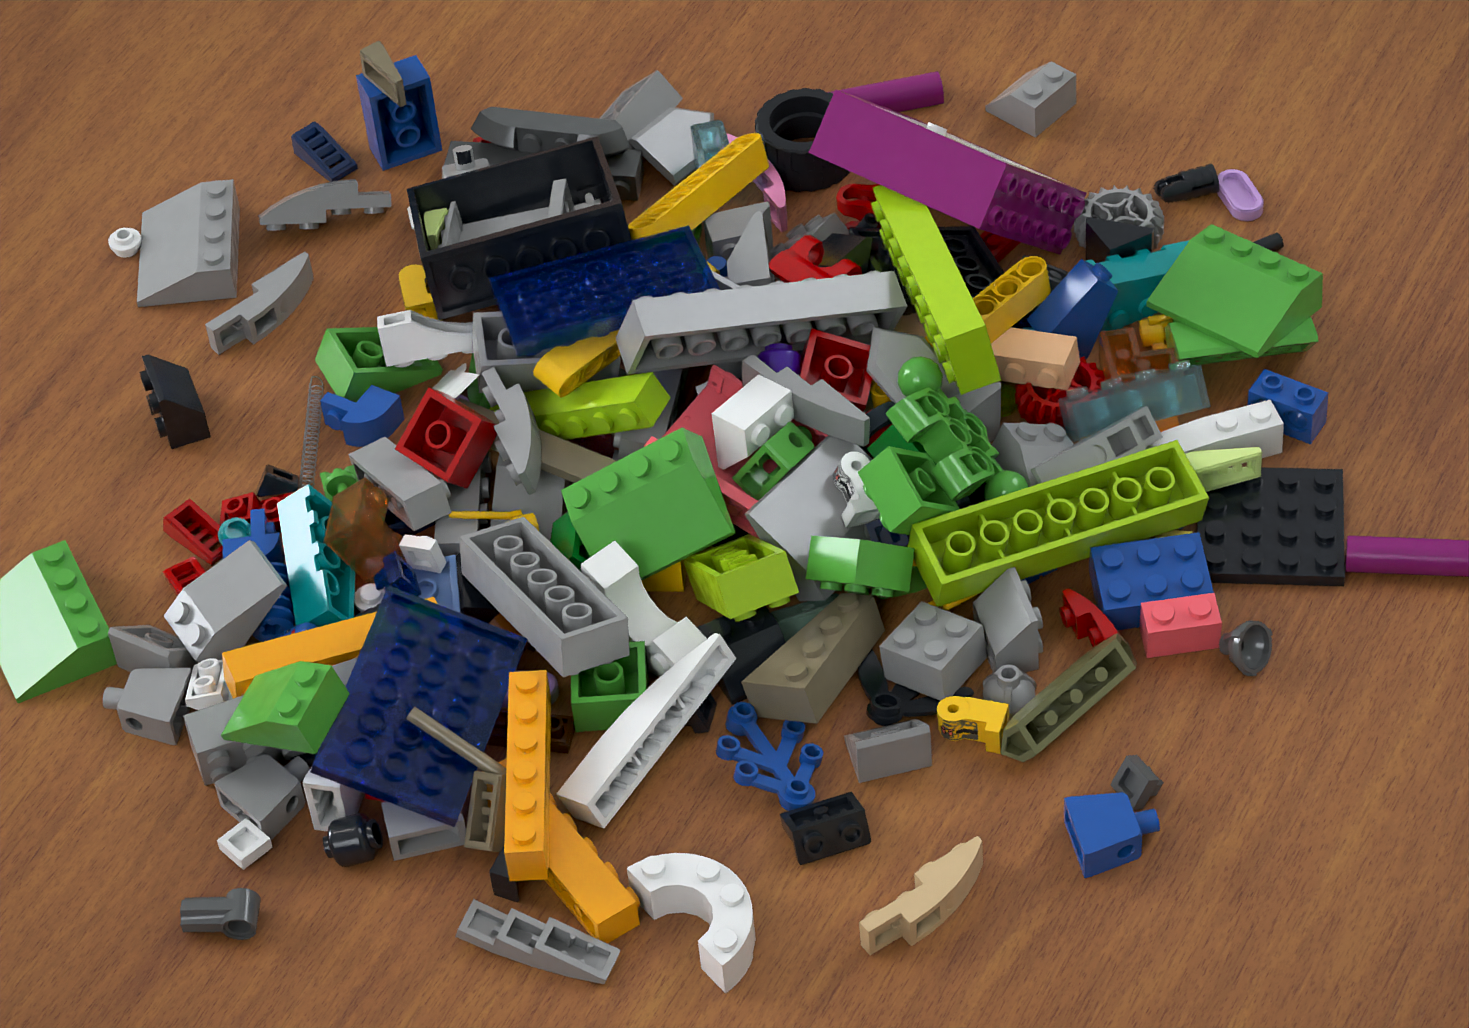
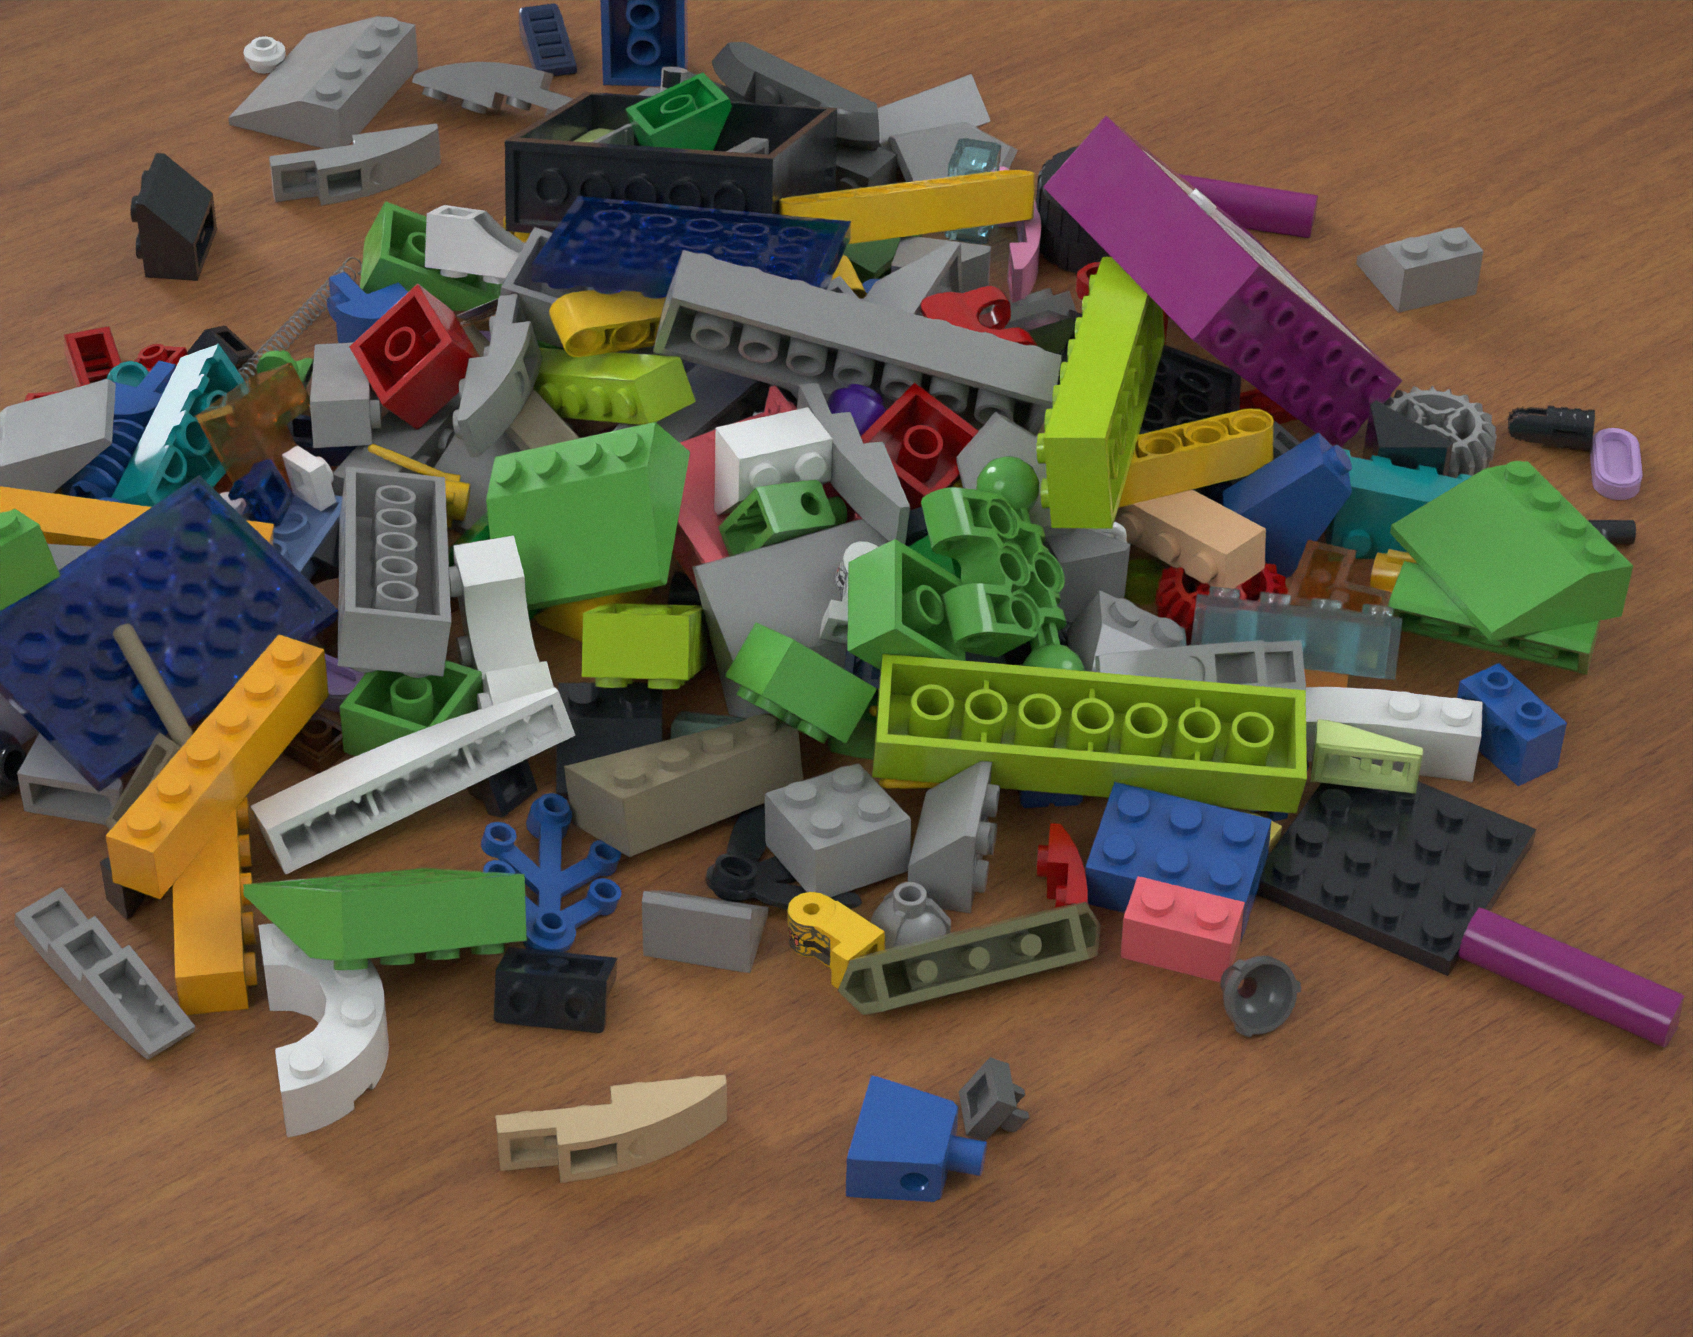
camera: 20 degrees right, 5 degrees down
(499, 190) = (681, 116): none -> green slope
(708, 822) = (396, 914): none -> bright green slope

